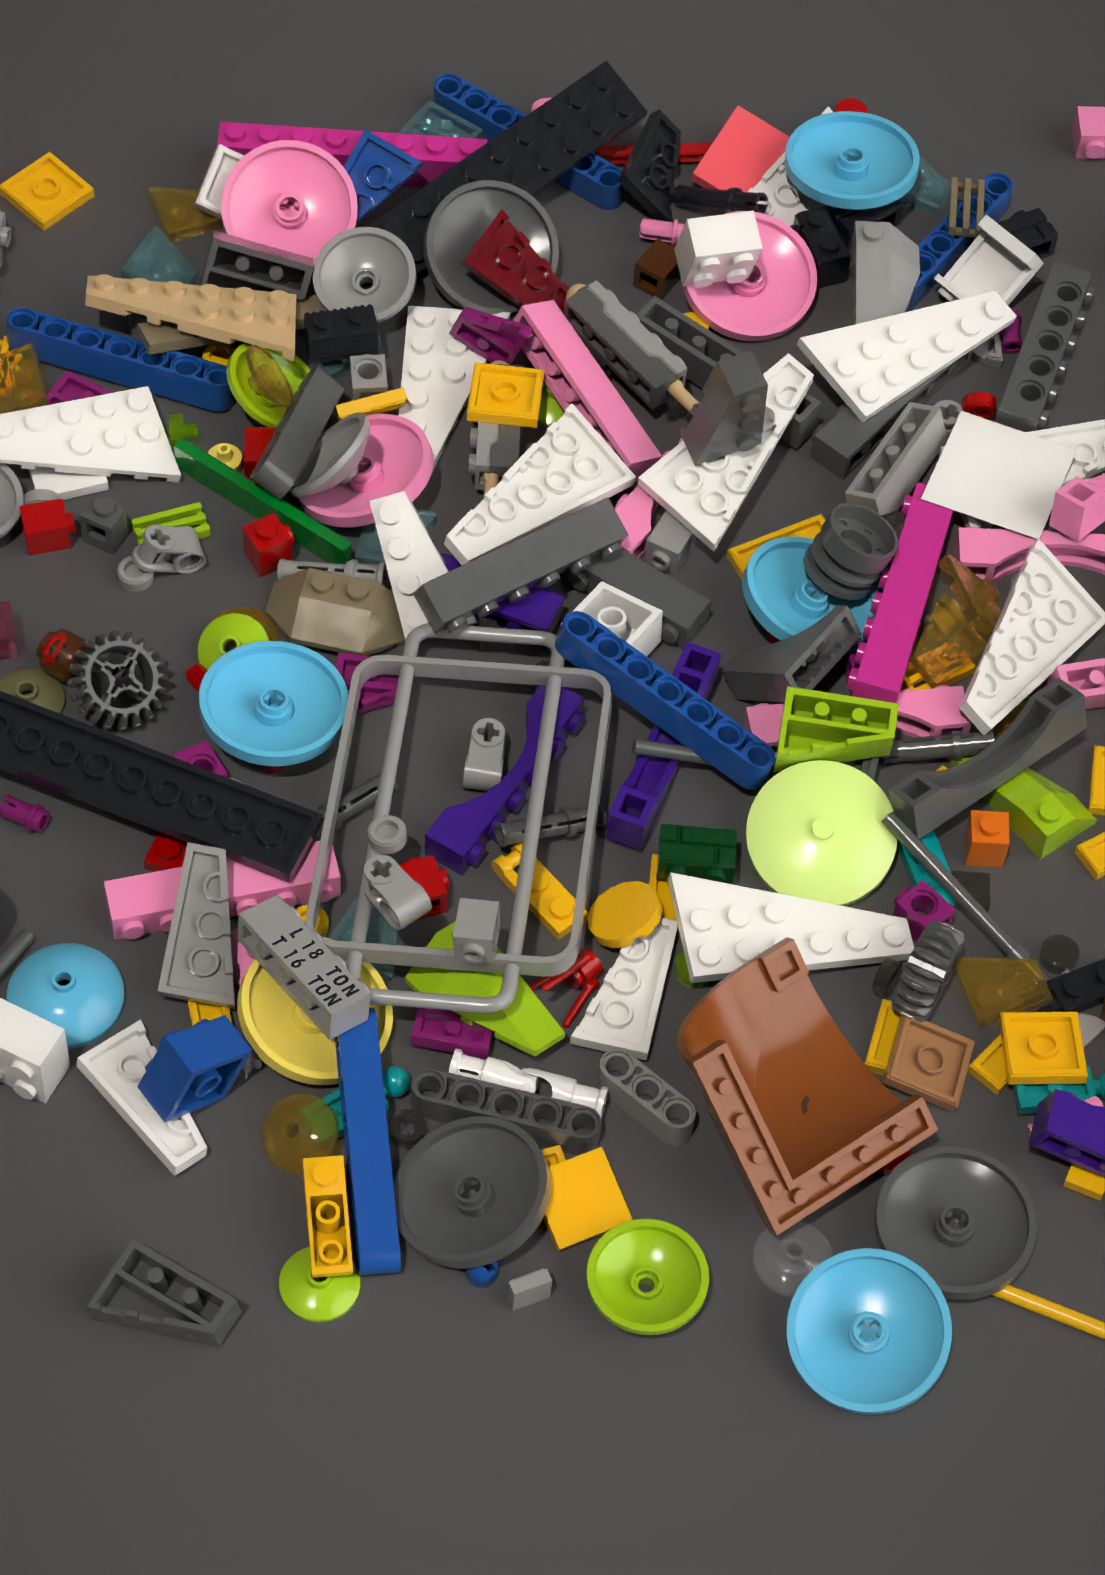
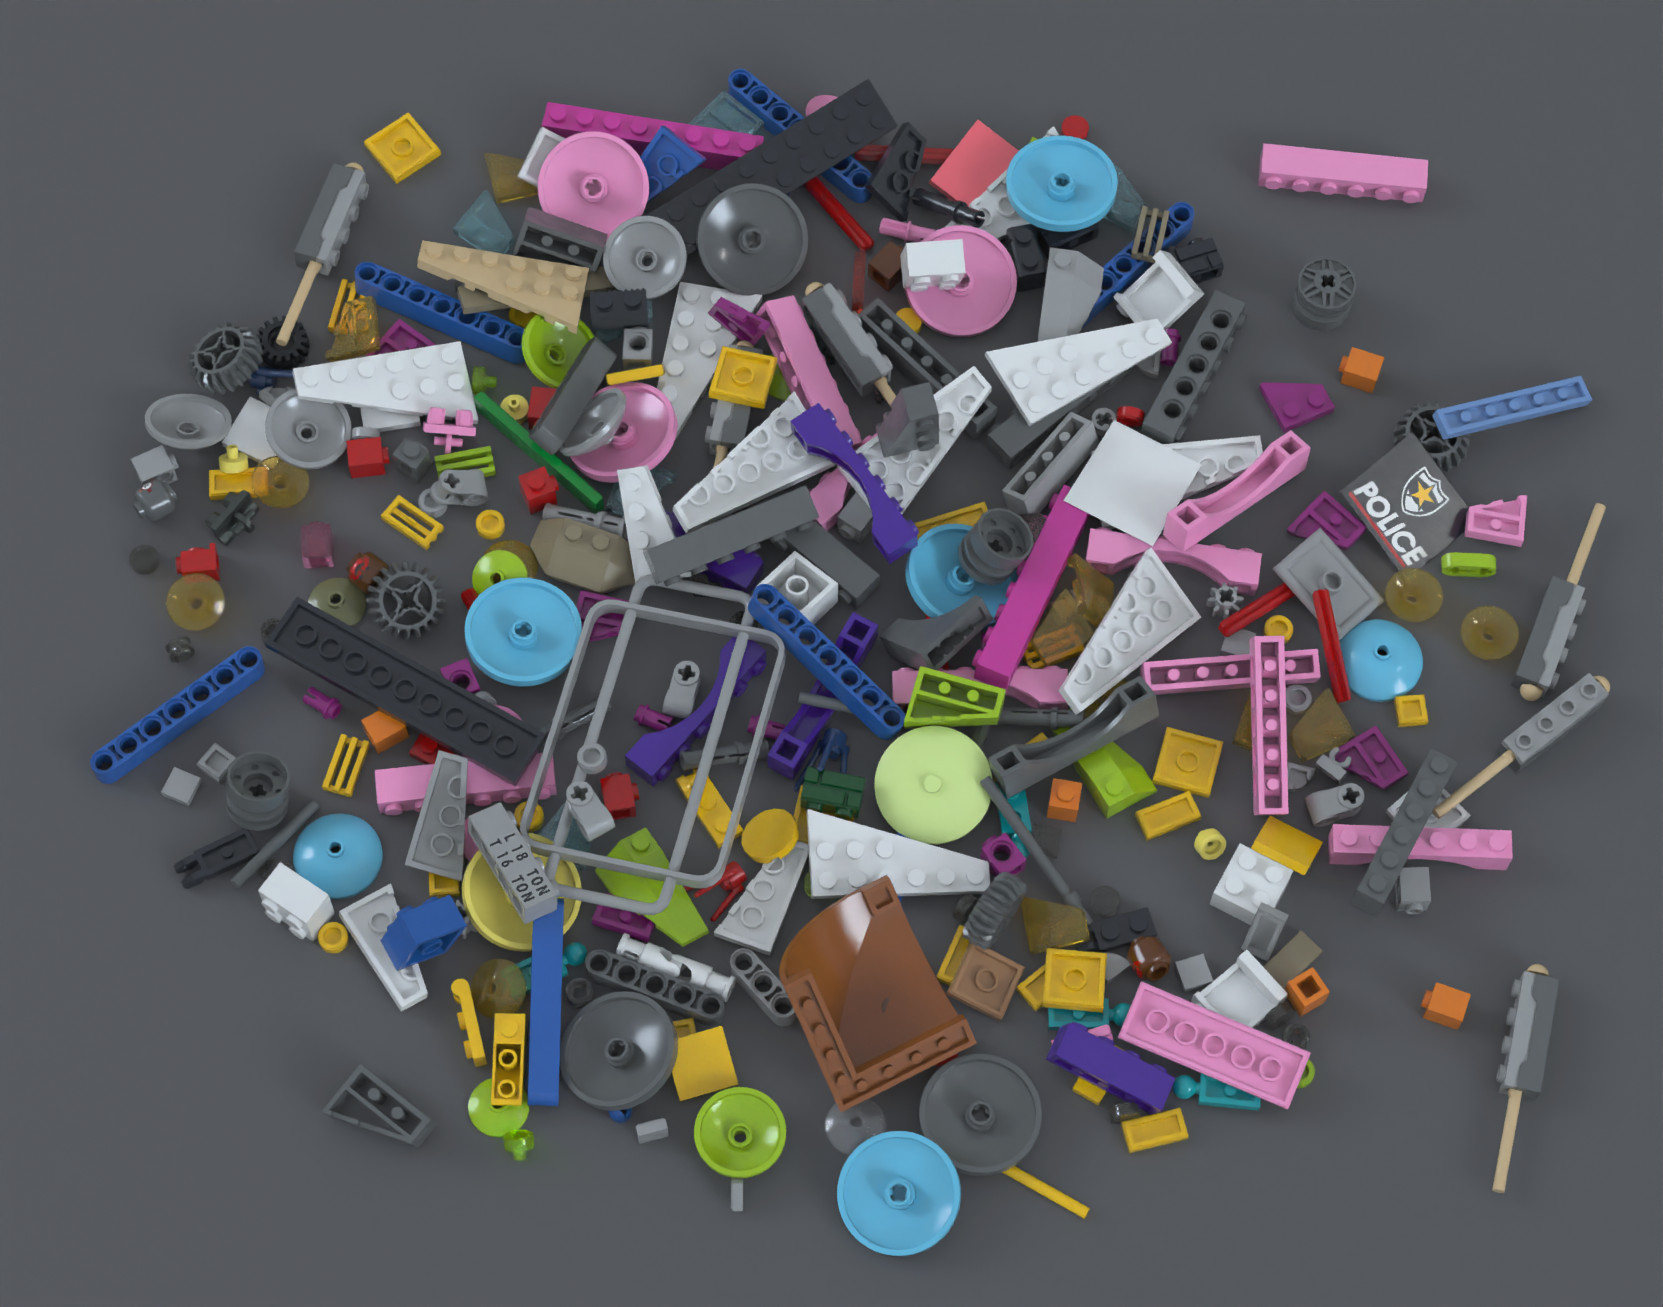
camera: 10 degrees right, 10 degrees up
(68, 859) = (353, 743): none -> yellow tile
(72, 1094) = (333, 937): none -> yellow tile
(108, 837) = (384, 731): none -> orange brick
(109, 602) = (430, 536): none -> yellow tile
(163, 482) = (462, 426): none -> bright pink hips
(211, 591) = (490, 524): none -> yellow tile
(267, 1178) = (468, 1021): none -> yellow plate
(268, 377) = (554, 348): clear yellow dish -> none
(354, 1323) = (518, 1142): none -> clear neon green tile
(449, 792) = (651, 718): none -> magenta pin
(476, 930) = (645, 850): light grey brick -> none
(513, 267) = (768, 261): dark red wing -> none
(583, 787) = (772, 730): none -> magenta pin
(588, 221) = (839, 214): none -> red axle
(619, 446) = (822, 438): none -> dark purple arch
(628, 280) = (858, 281): none -> clear red tile
(654, 1356) = (737, 1194): none -> light grey tile
(683, 806) = (831, 747): none -> dark blue plant

